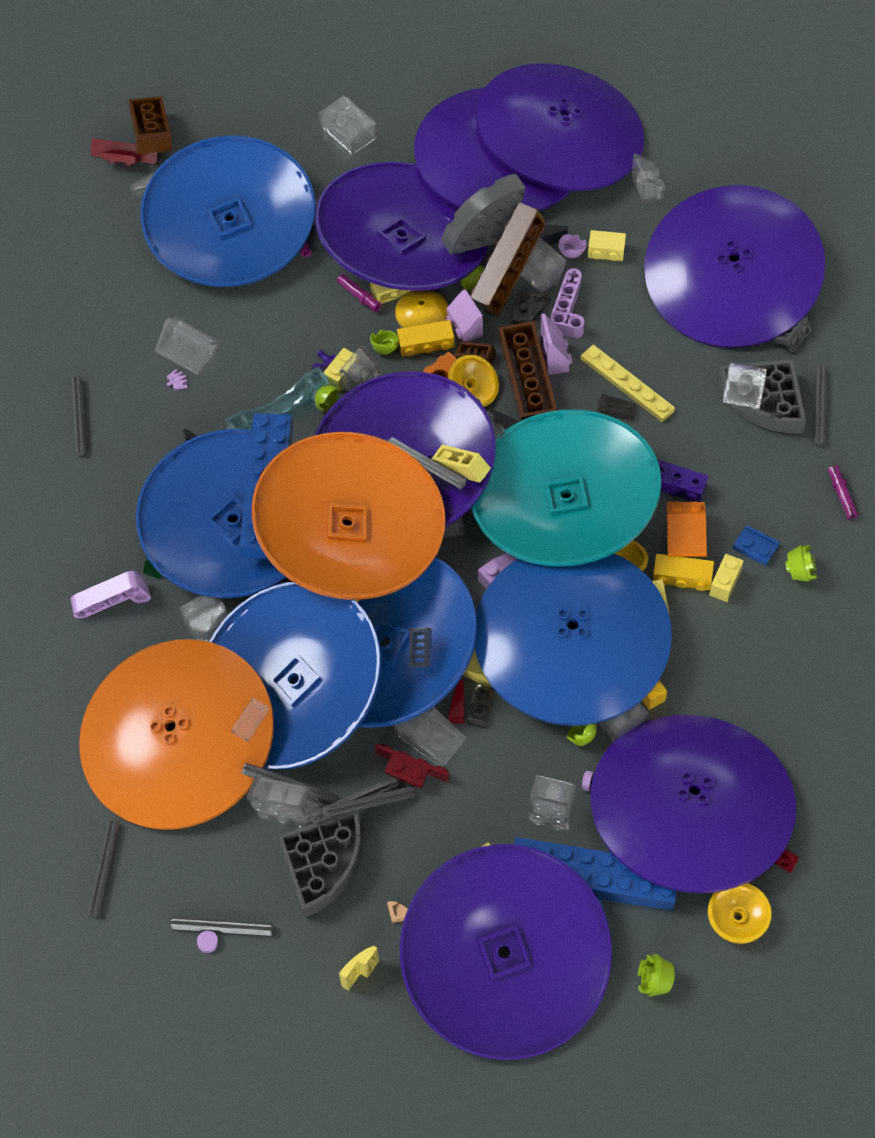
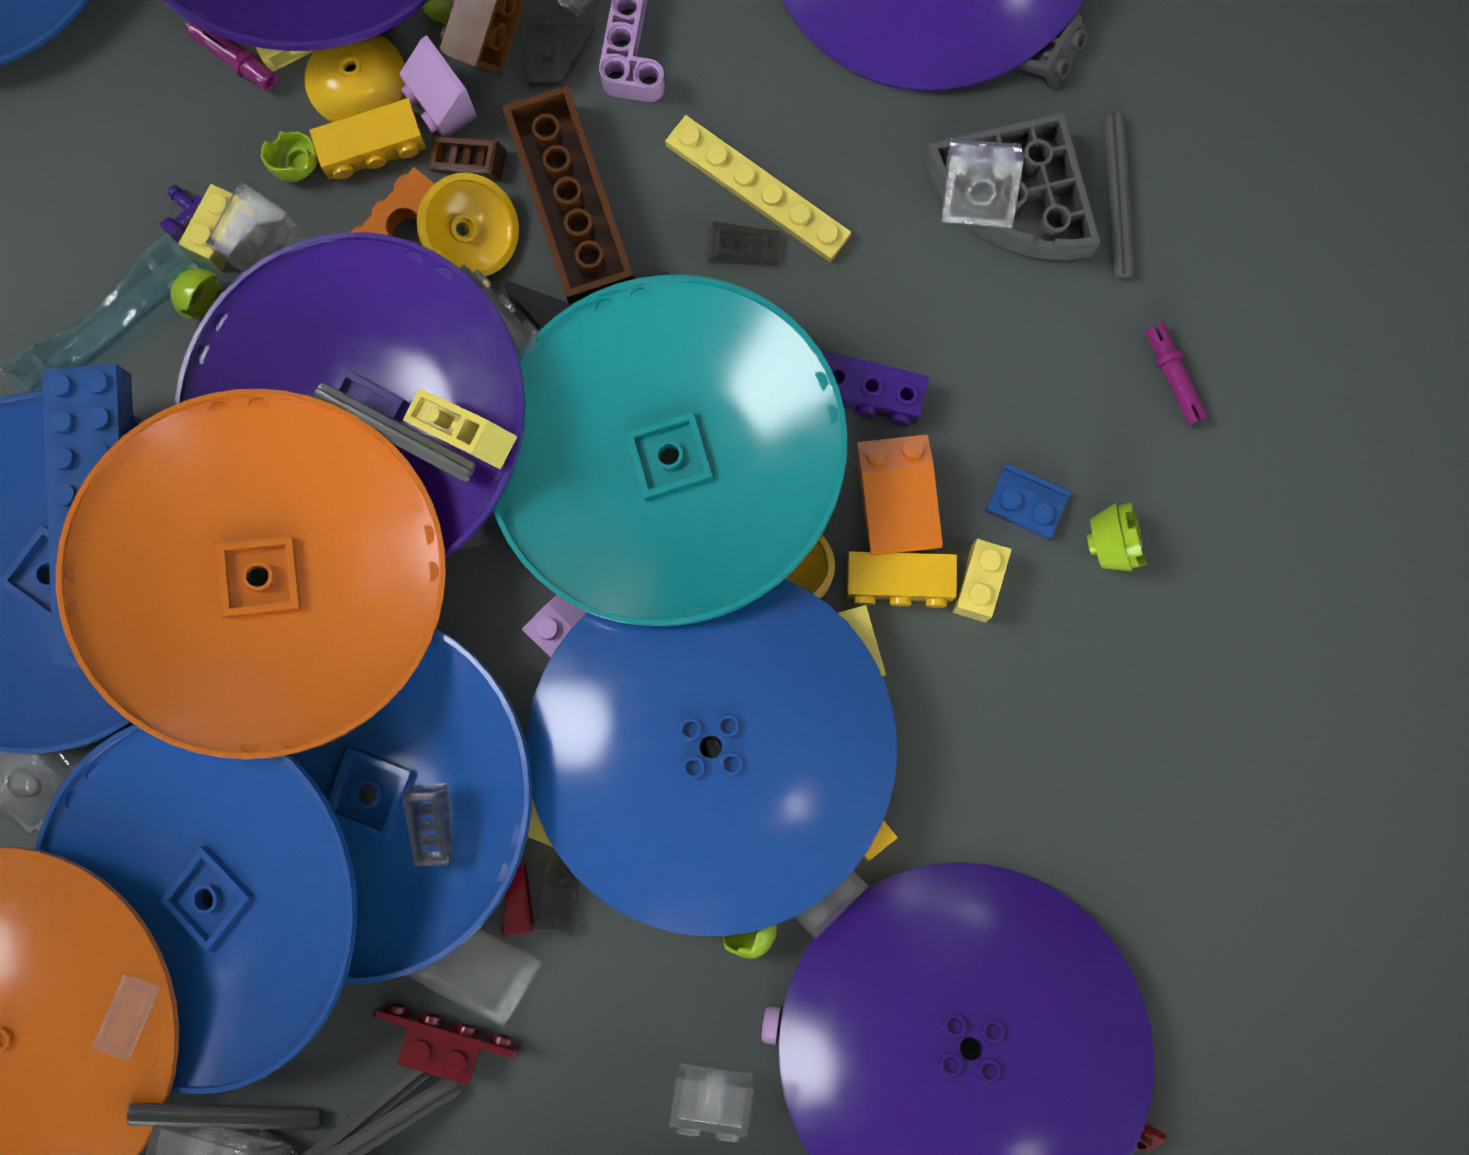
camera: 10 degrees left, 20 degrees up
(554, 347) = (613, 135): lavender slope -> none

